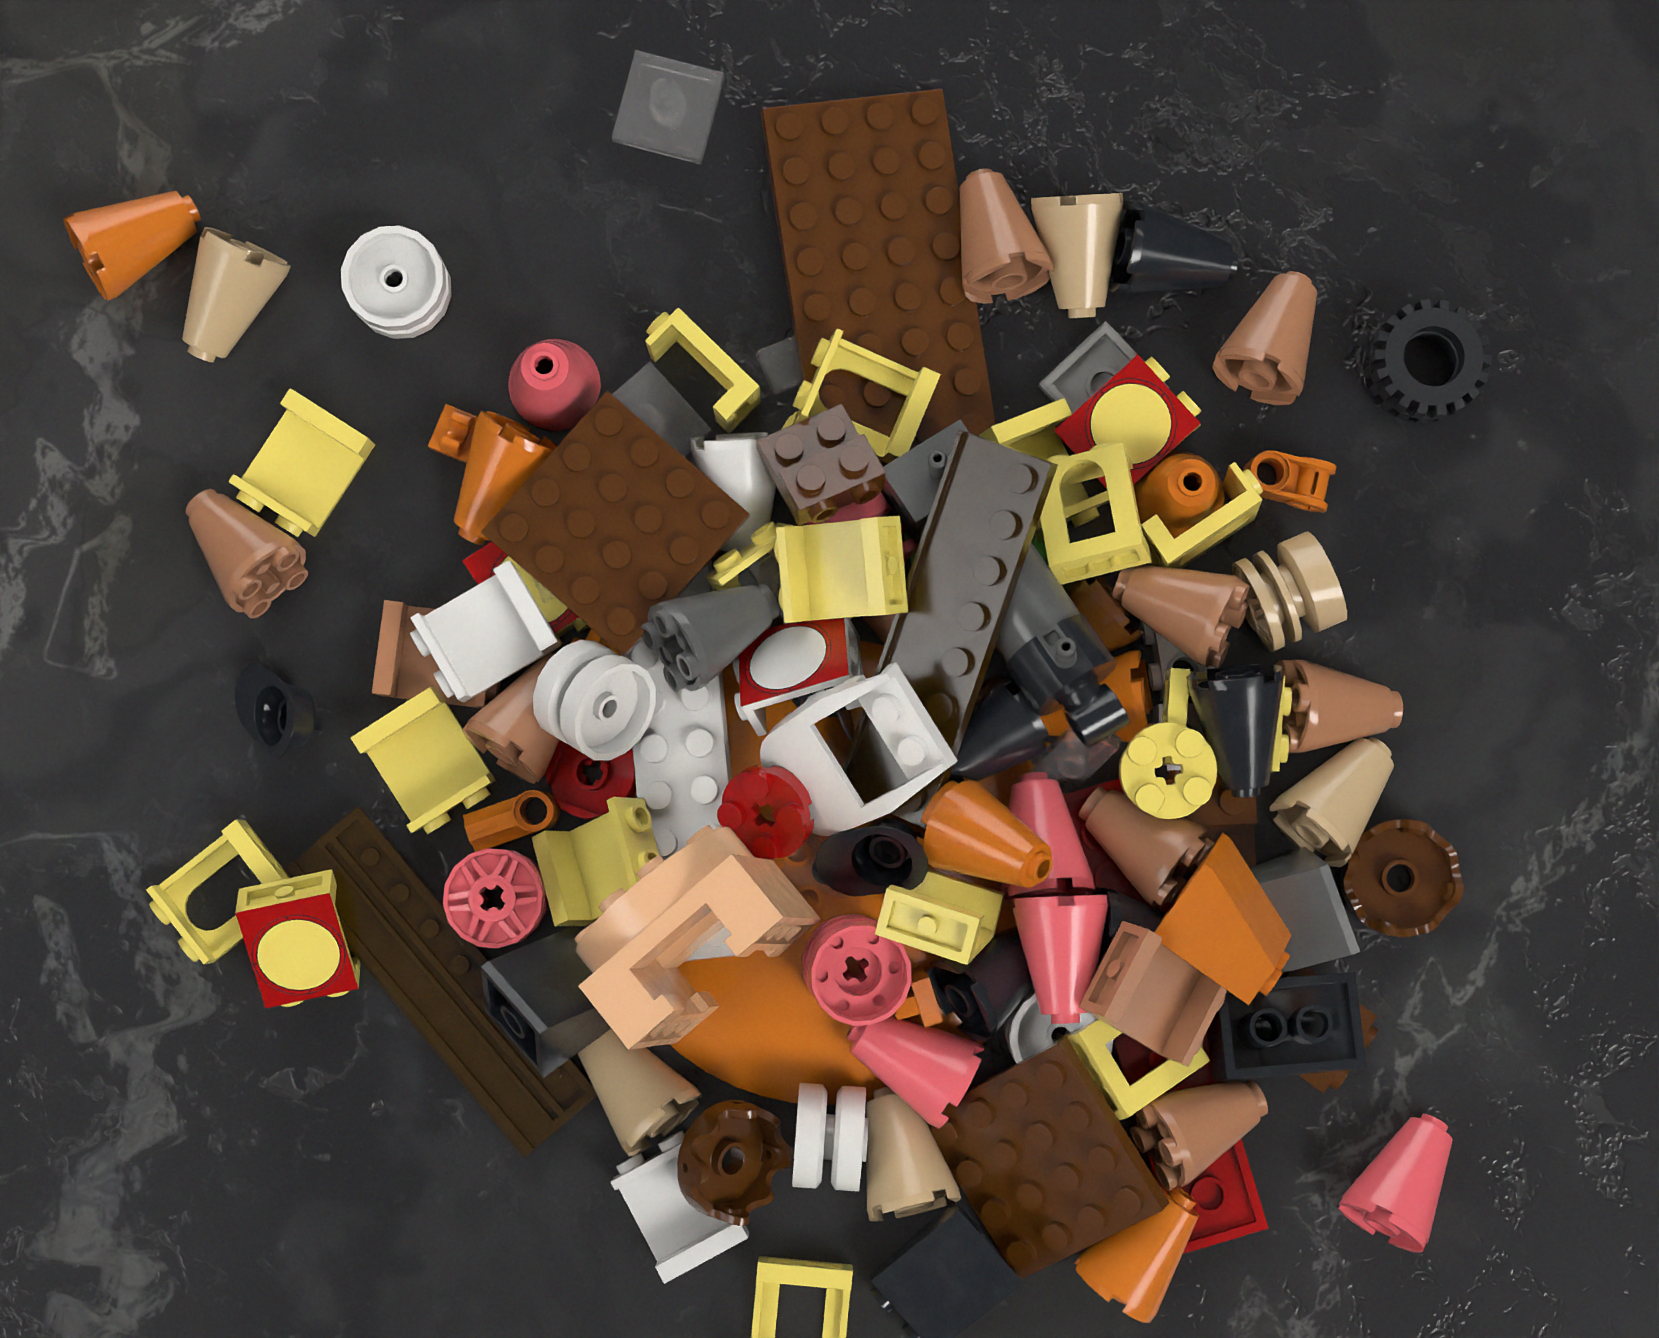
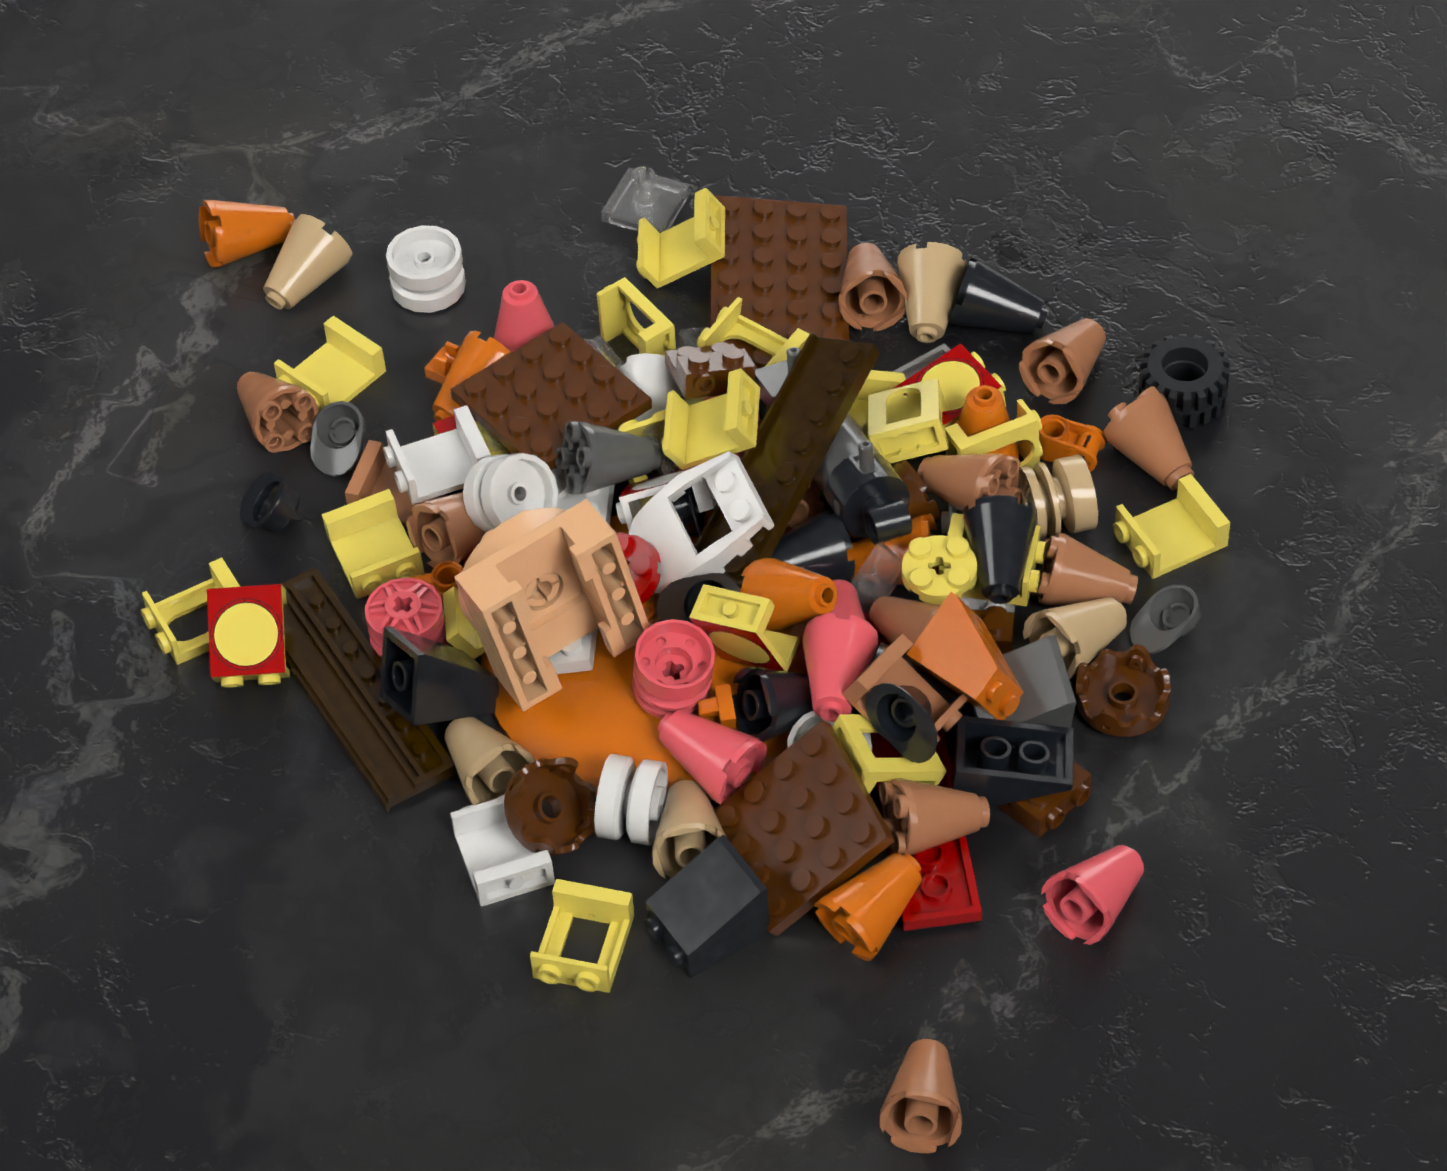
camera: 15 degrees right, 35 degrees down
(340, 586) = (337, 438): none -> dark grey cap
(735, 197) = (684, 247): none -> light yellow panel
(1166, 1038) = (904, 719): none -> black piece
(1396, 470) = (1150, 437): none -> nougat cone
(1431, 603) = (1173, 531): none -> light yellow panel
(1440, 756) = (1165, 618): none -> dark grey cap

